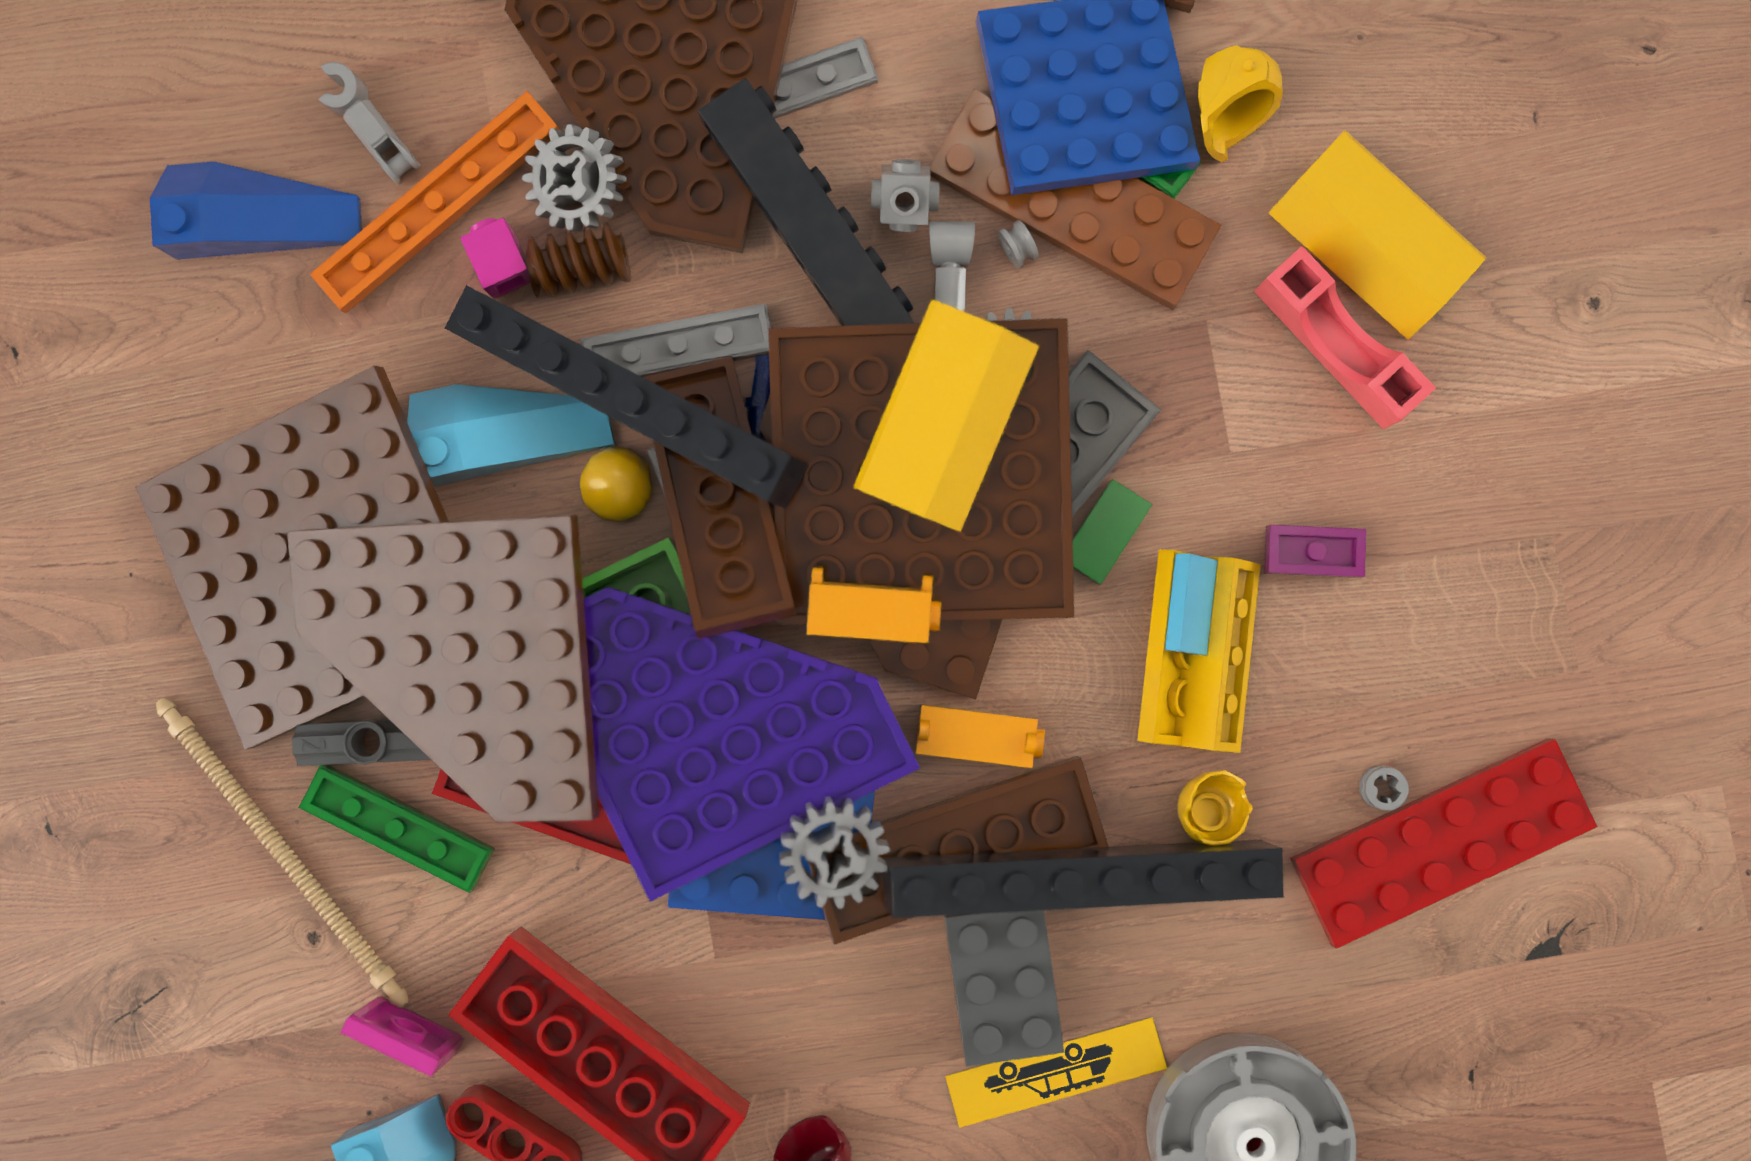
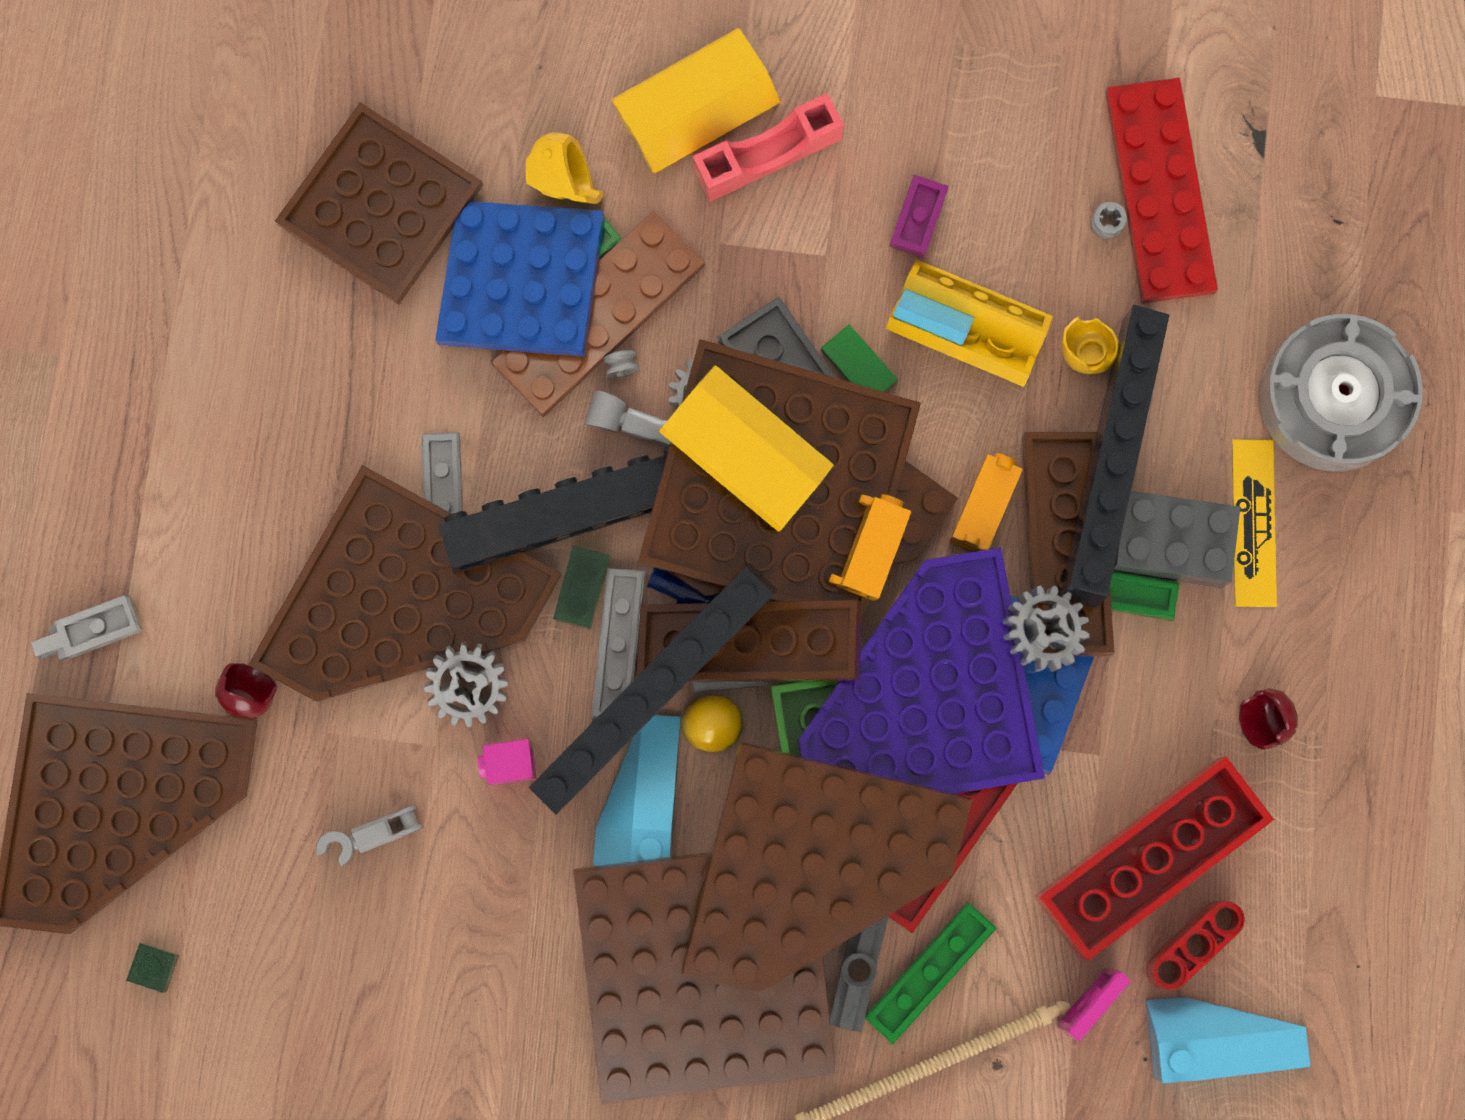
camera: 75 degrees left, 5 degrees down
(237, 211) = (405, 958): blue wedge -> none
(434, 203) = (449, 800): orange plate -> none
(577, 260) = (530, 700): reddish brown piece -> none
(731, 280) = (581, 587): none -> clear green plate
(909, 177) = (548, 435): light grey brick -> none
(923, 960) = (1143, 595): none -> green tile

